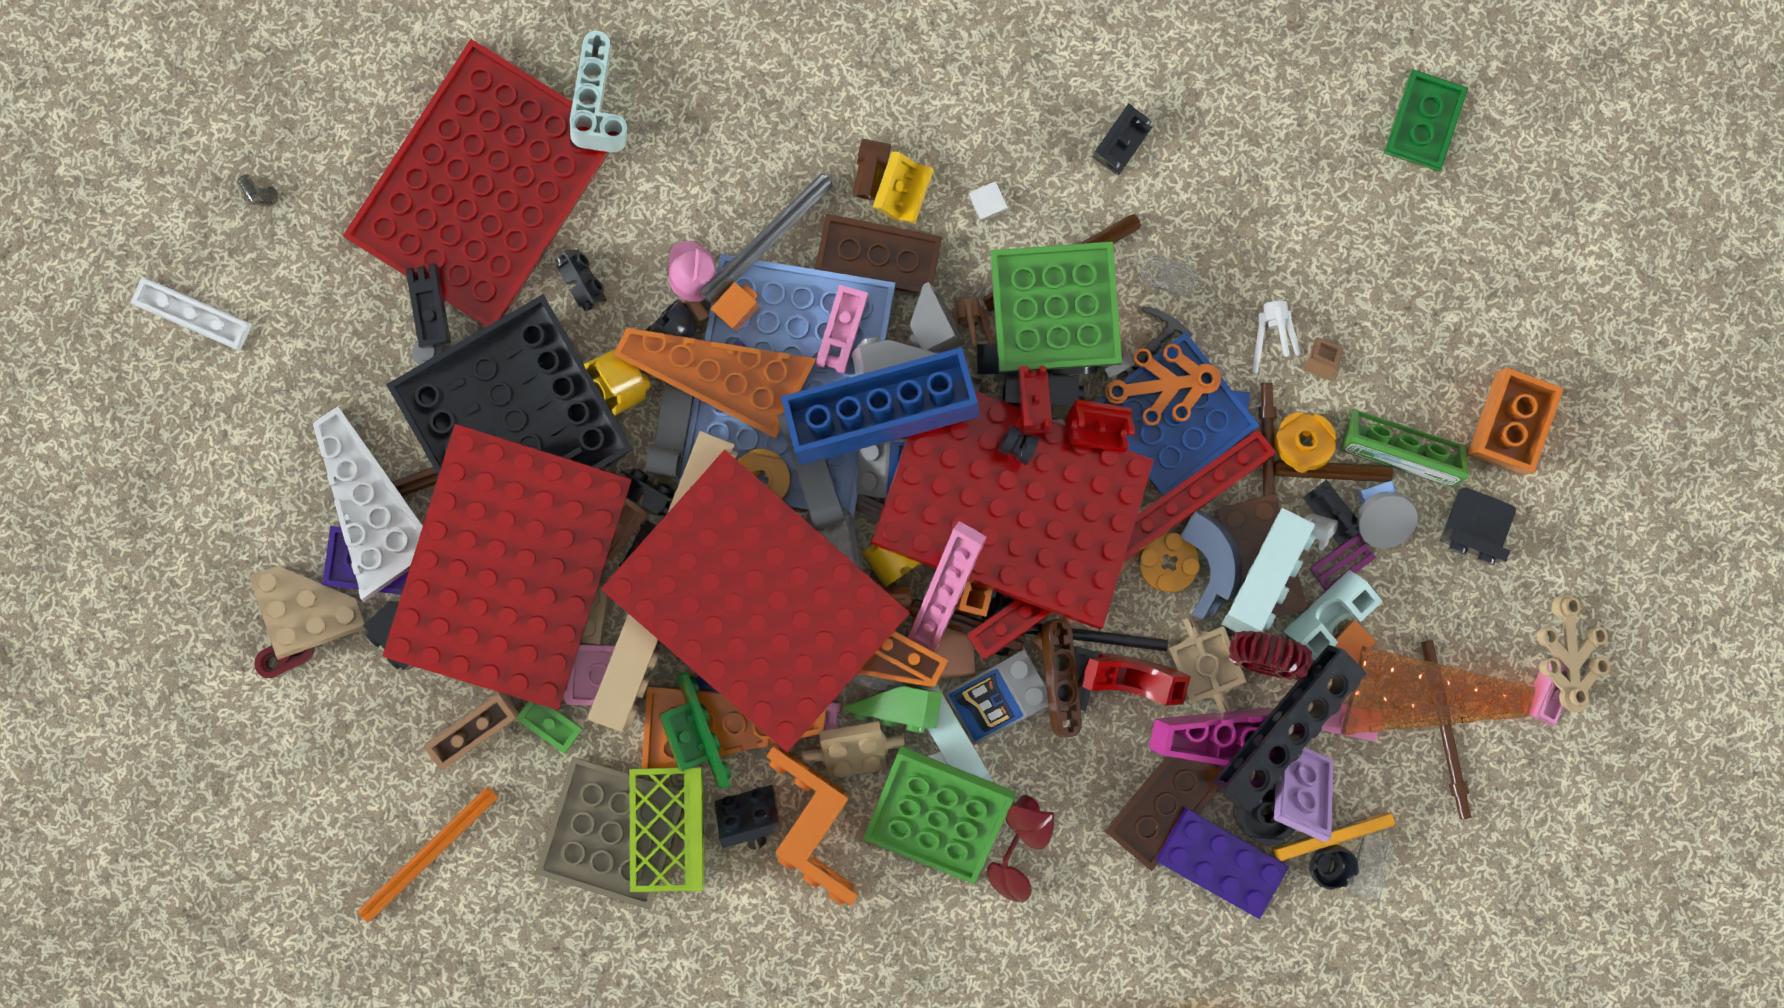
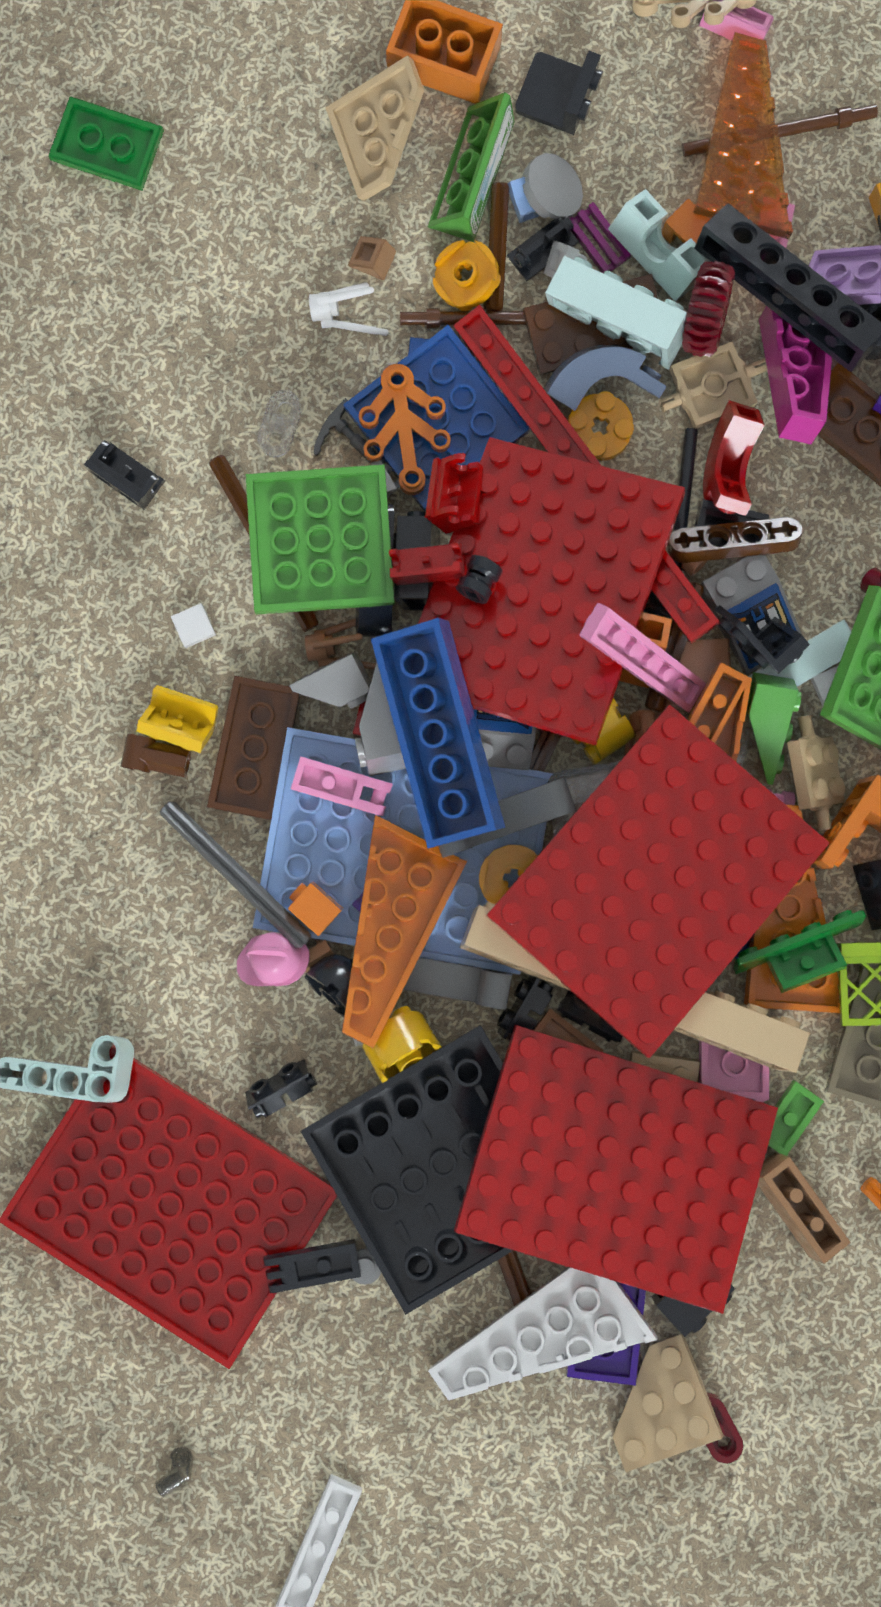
camera: 90 degrees left, 0 degrees up
(962, 707) = (772, 646): none -> black bracket
(1442, 360) = (375, 125): none -> tan plate

